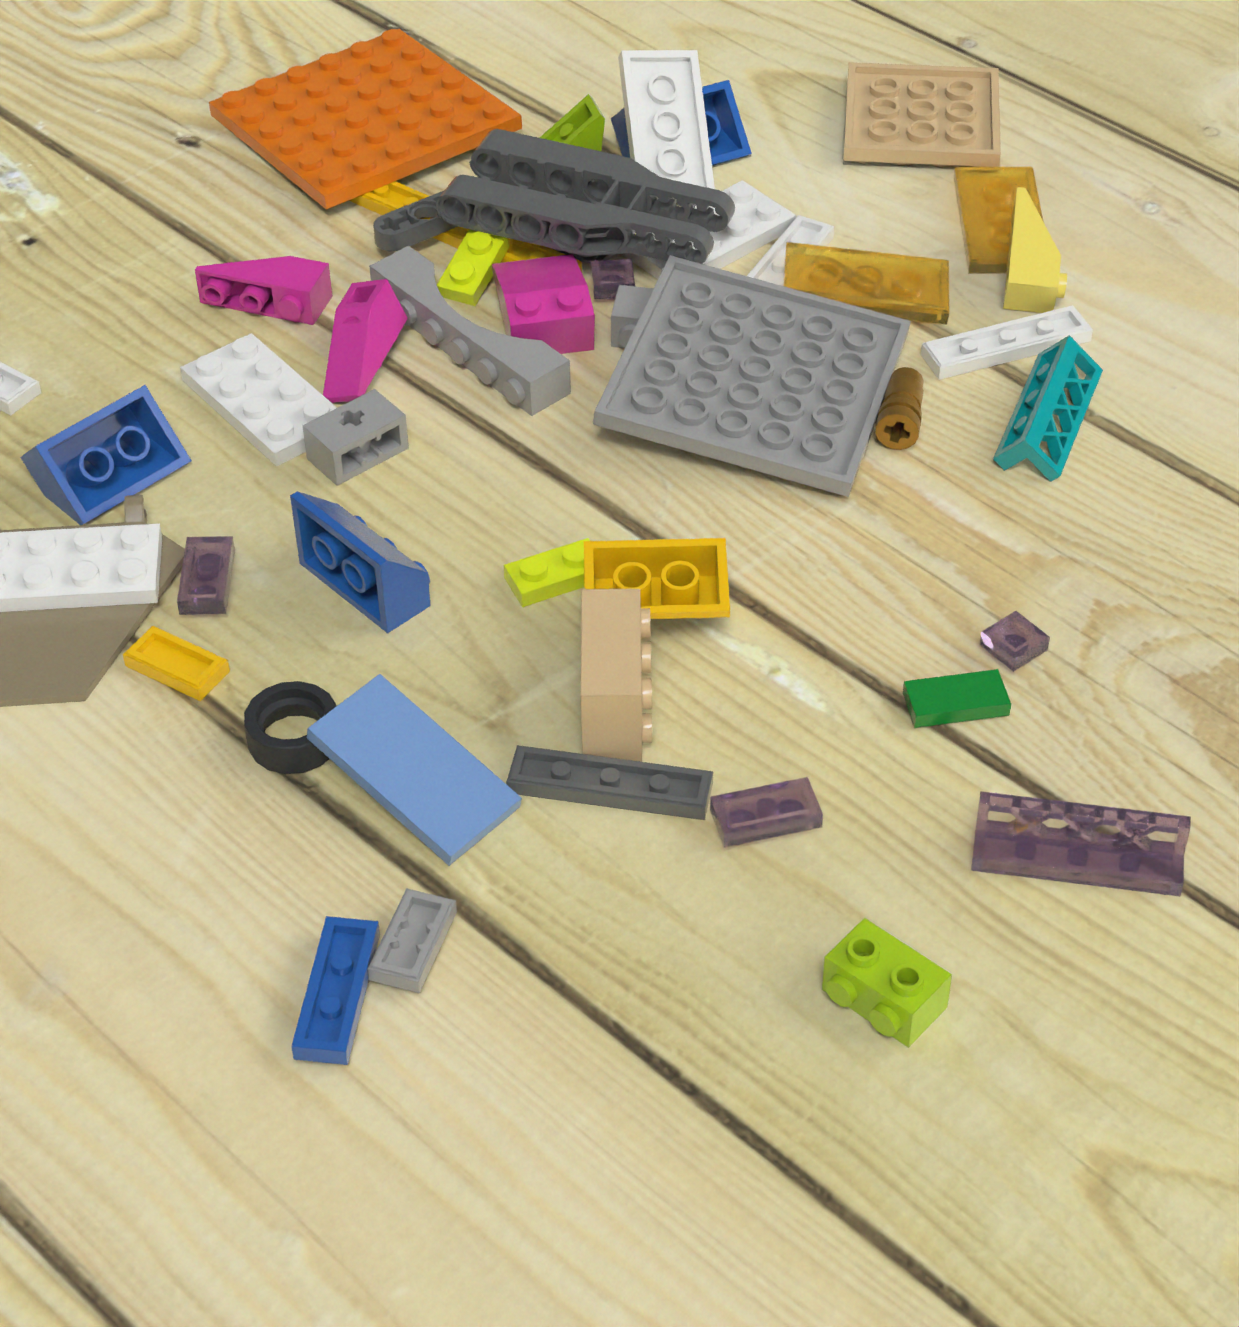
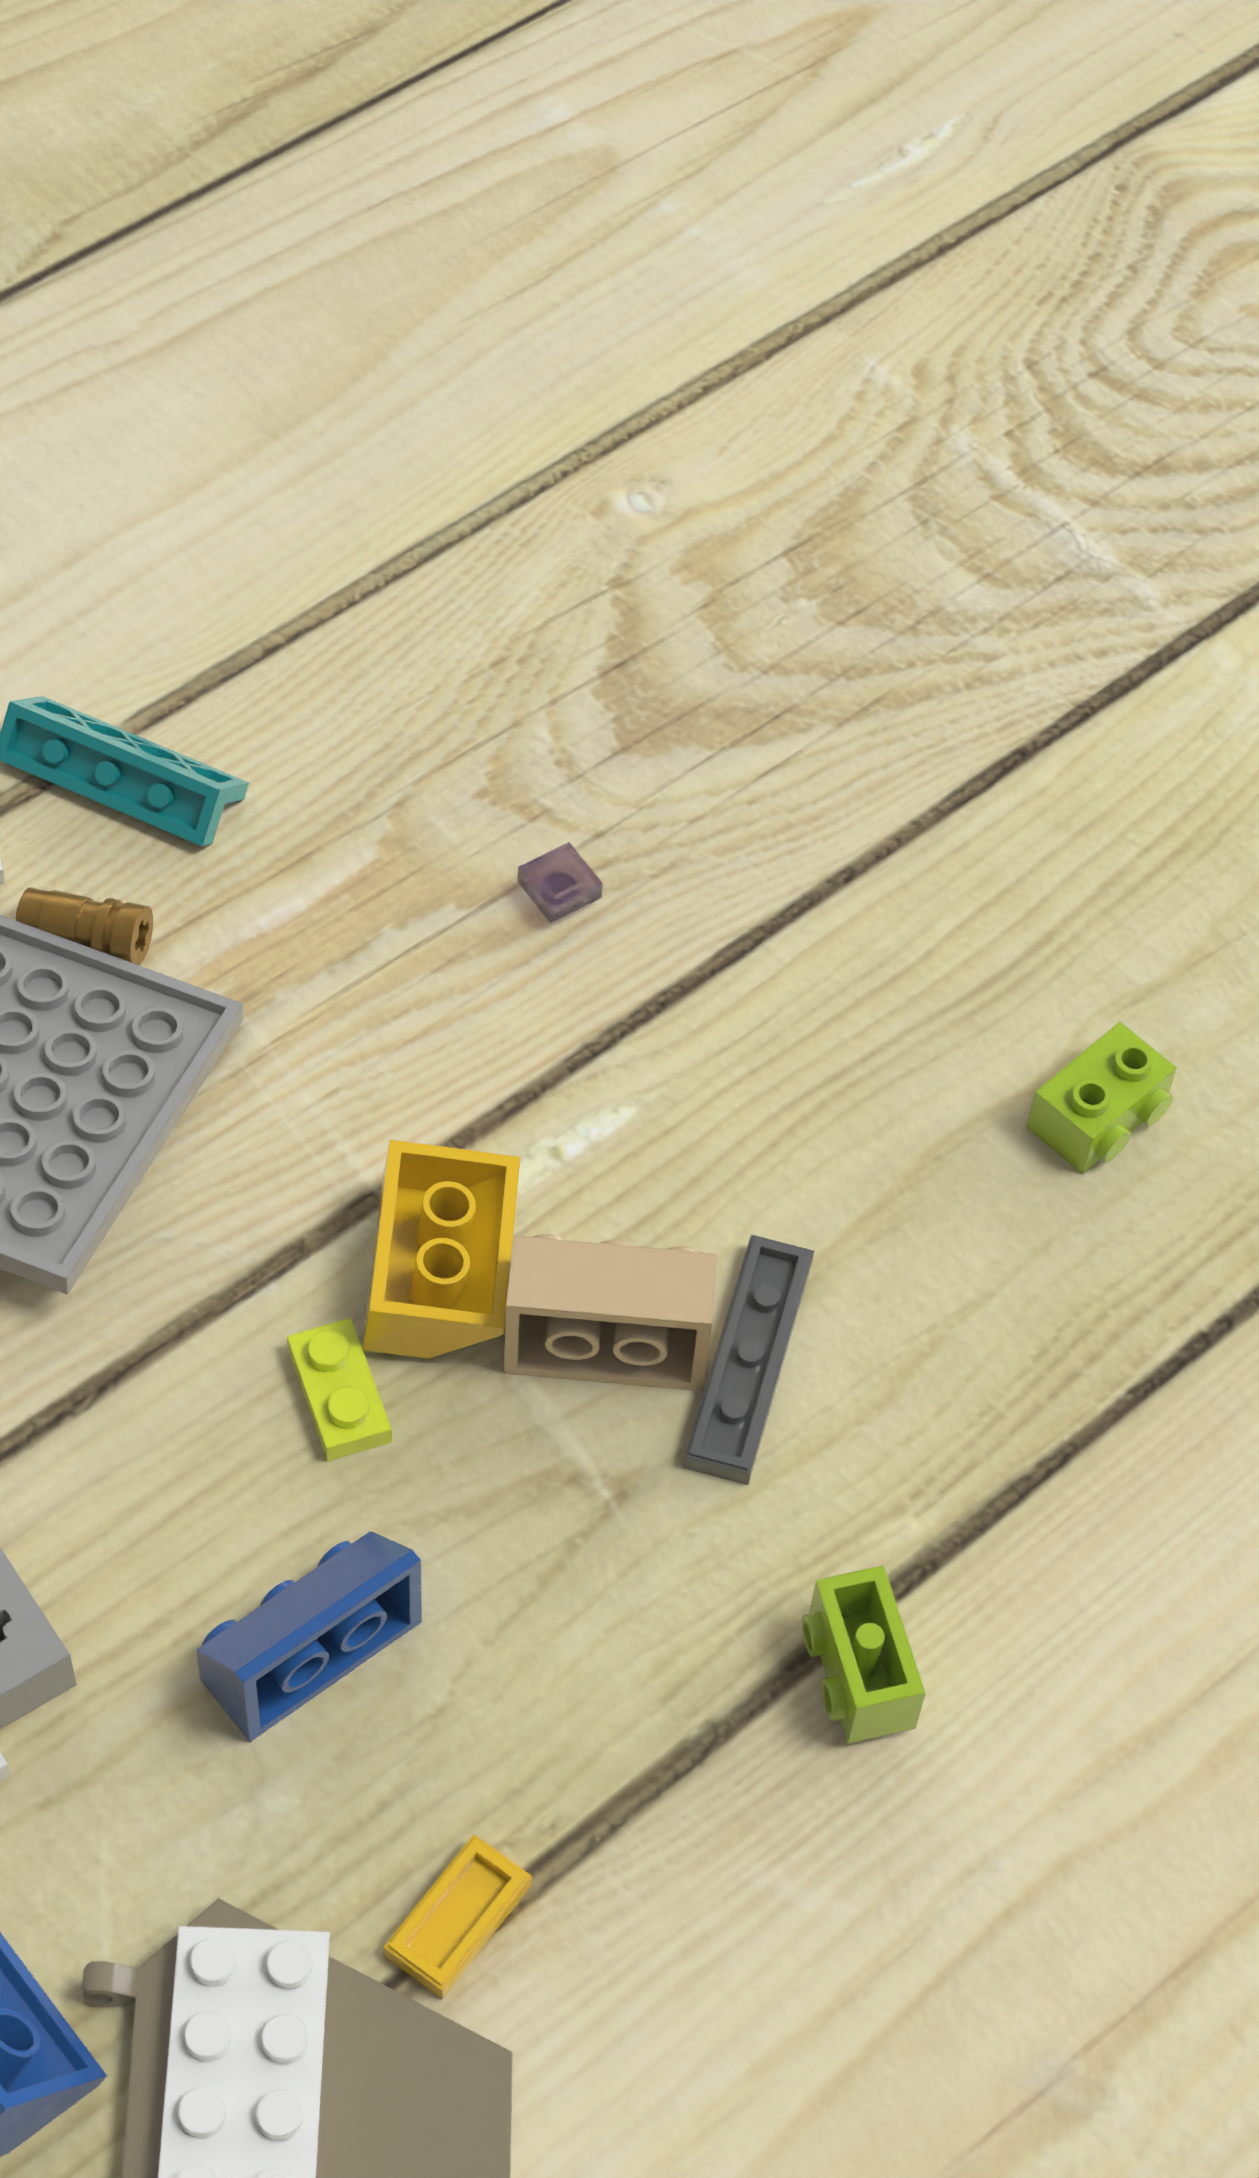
camera: 90 degrees left, 10 degrees up
(206, 575) = (283, 1866): plate -> none
(279, 702) = (626, 1690): black tyre -> none
(335, 991) = (1098, 1692): blue plate -> none
(351, 836) = (865, 1655): none -> lime brick
(412, 940) = (1018, 1599): light grey plate -> none
(414, 769) = (730, 1579): medium blue tile -> none
(766, 812) = (827, 1185): plate -> none
(956, 698) = (642, 962): green tile -> none
(1078, 851) = (904, 888): clear purple fence -> none

